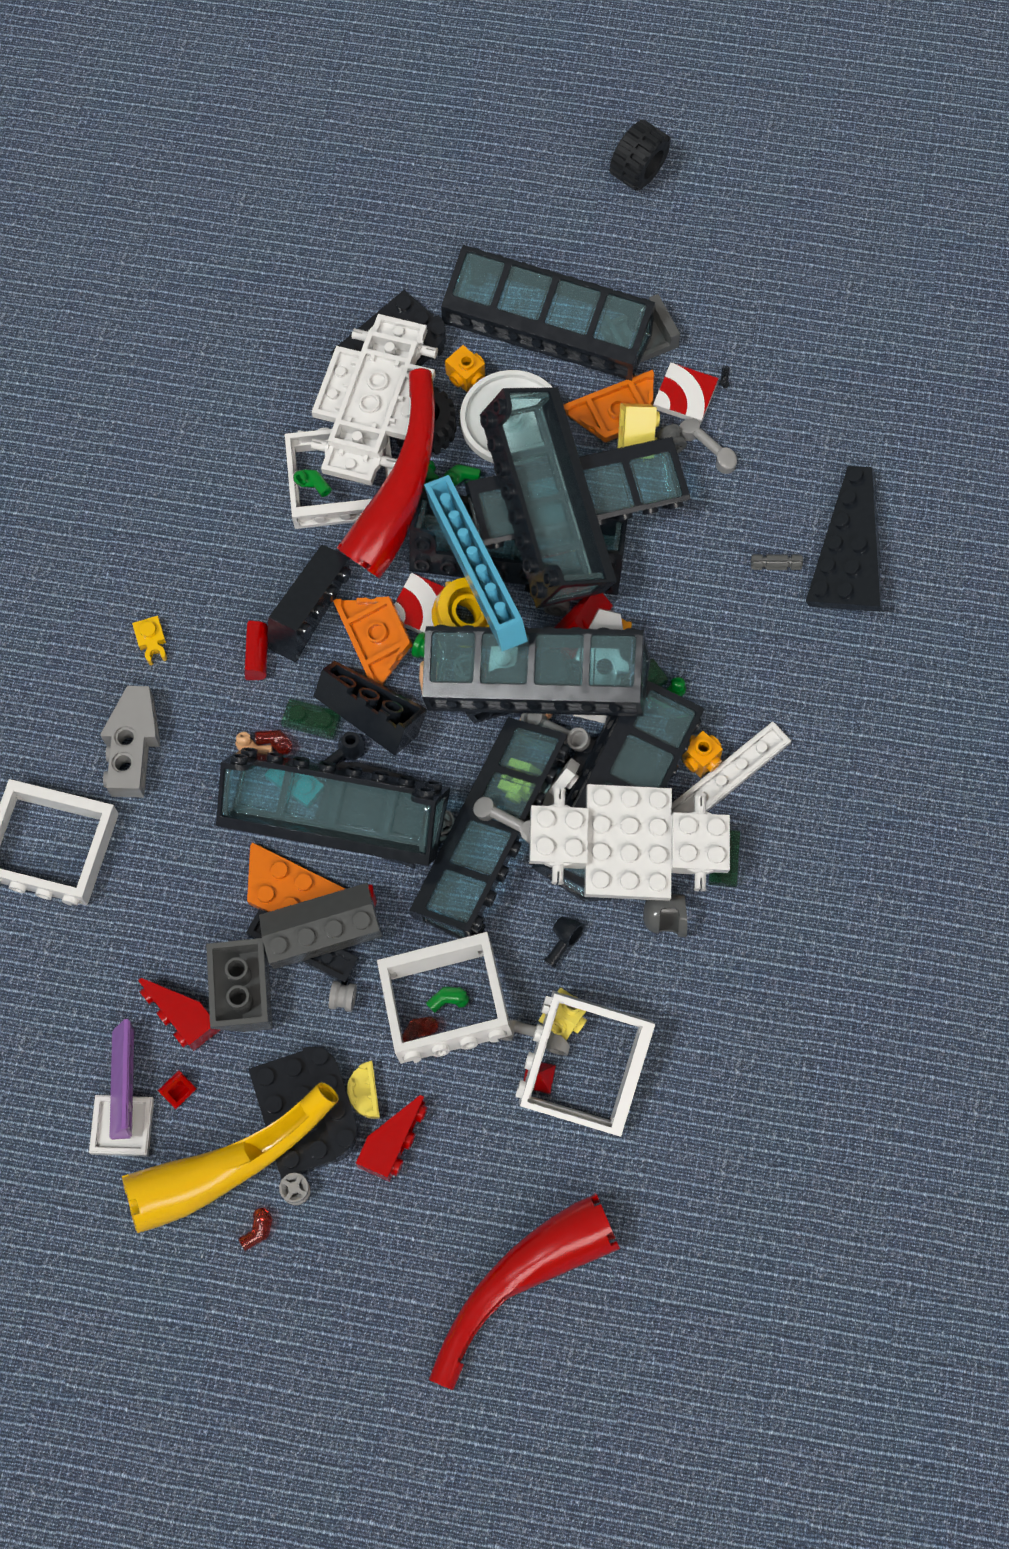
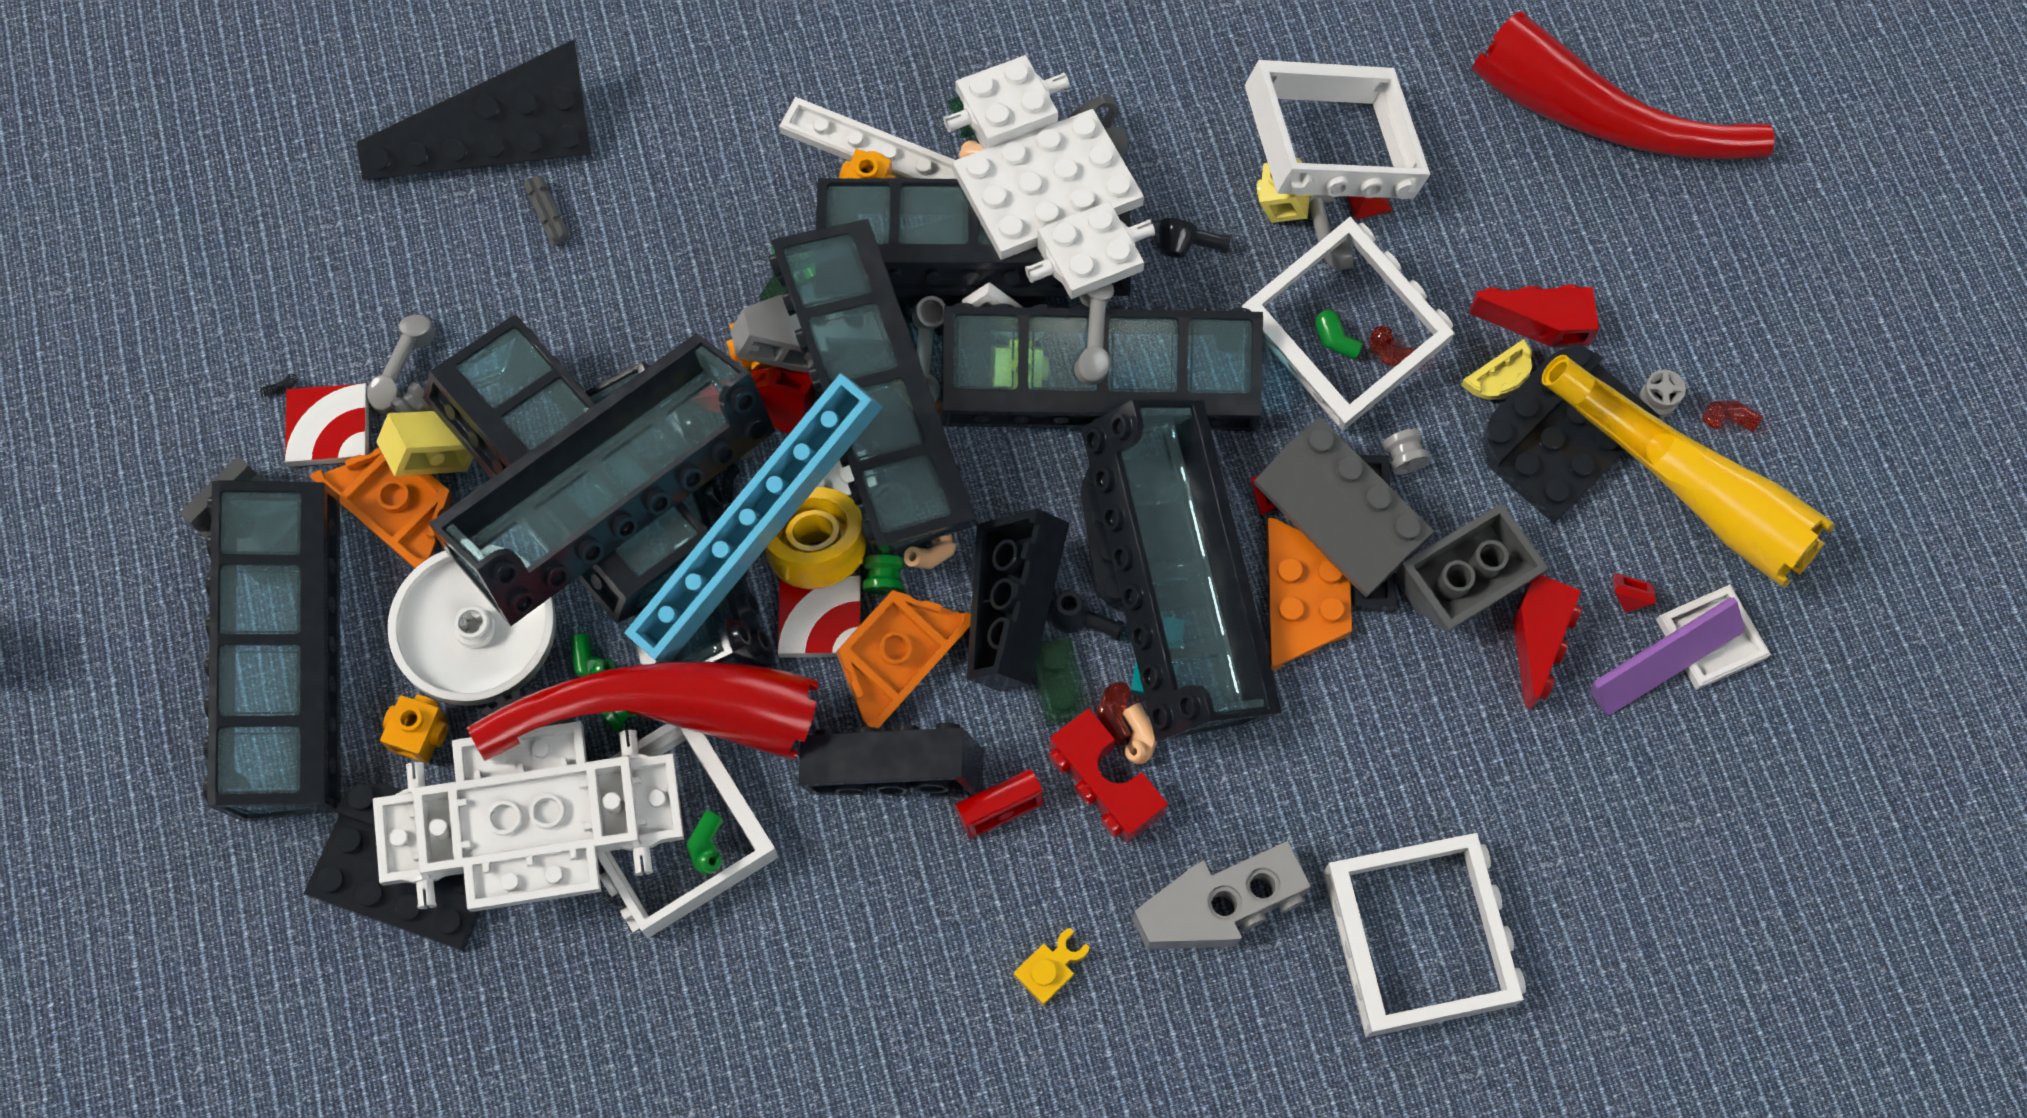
camera: 120 degrees left, 0 degrees up
(215, 714) = (1125, 806): none -> red arch

